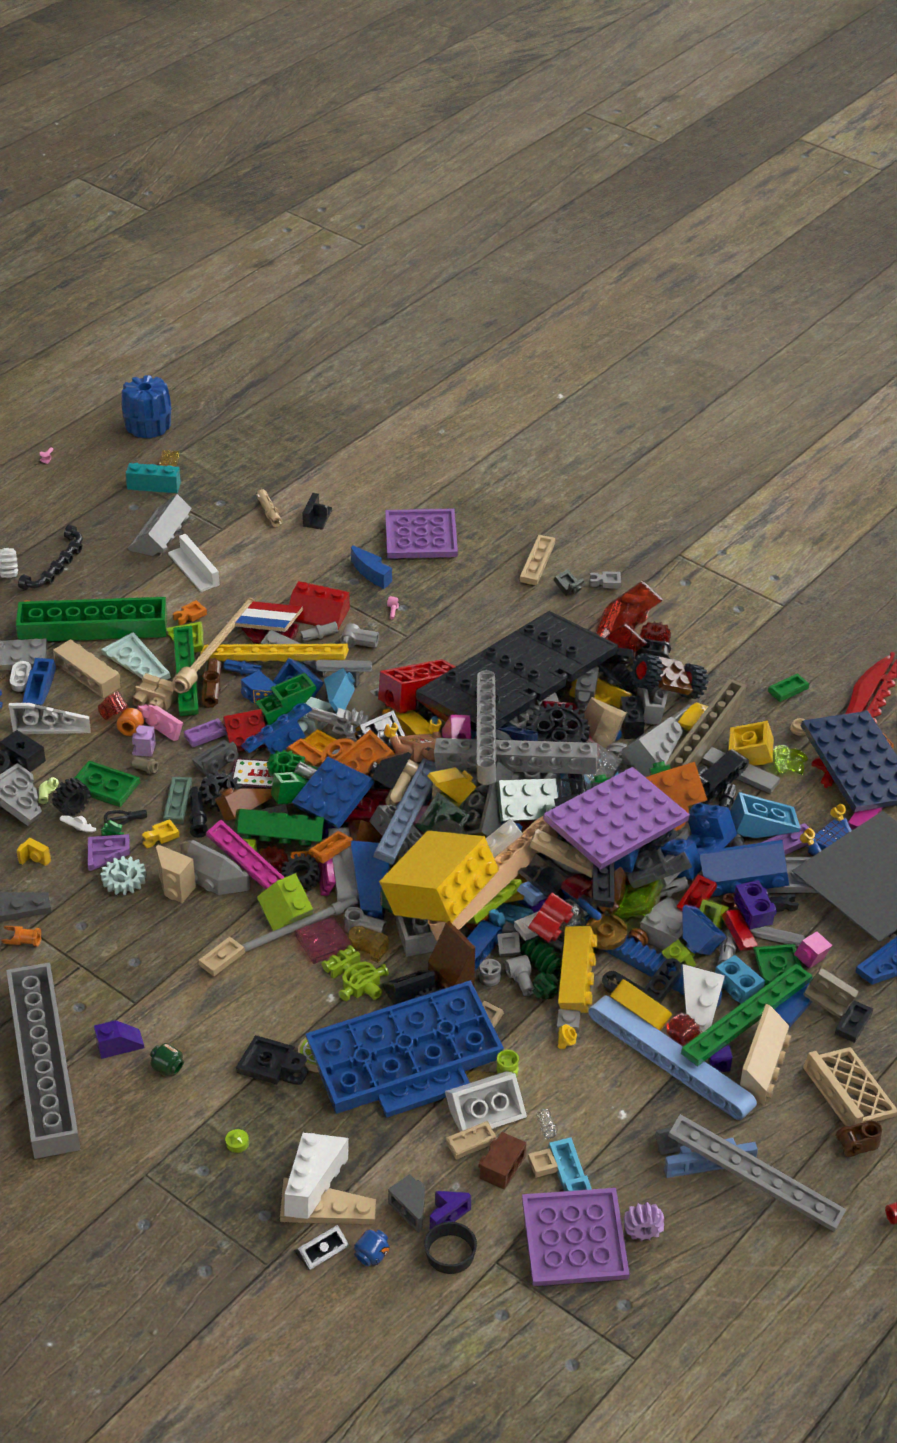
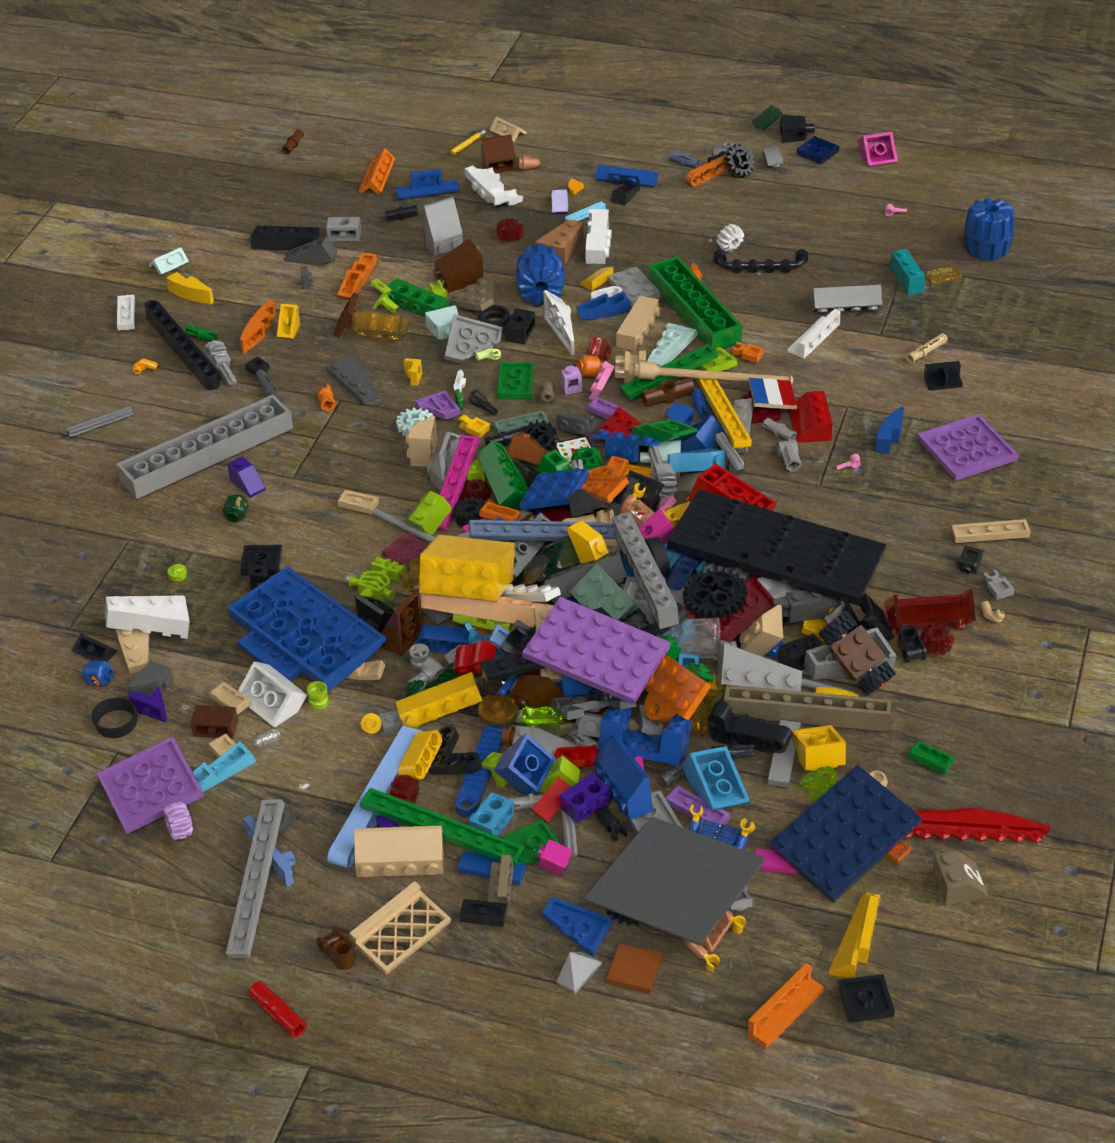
camera: 70 degrees right, 0 degrees up
(71, 796) = (475, 370): black tyre -> none
(486, 727) = (649, 529): light grey beam -> none
(701, 994) = (453, 794): white wing -> none

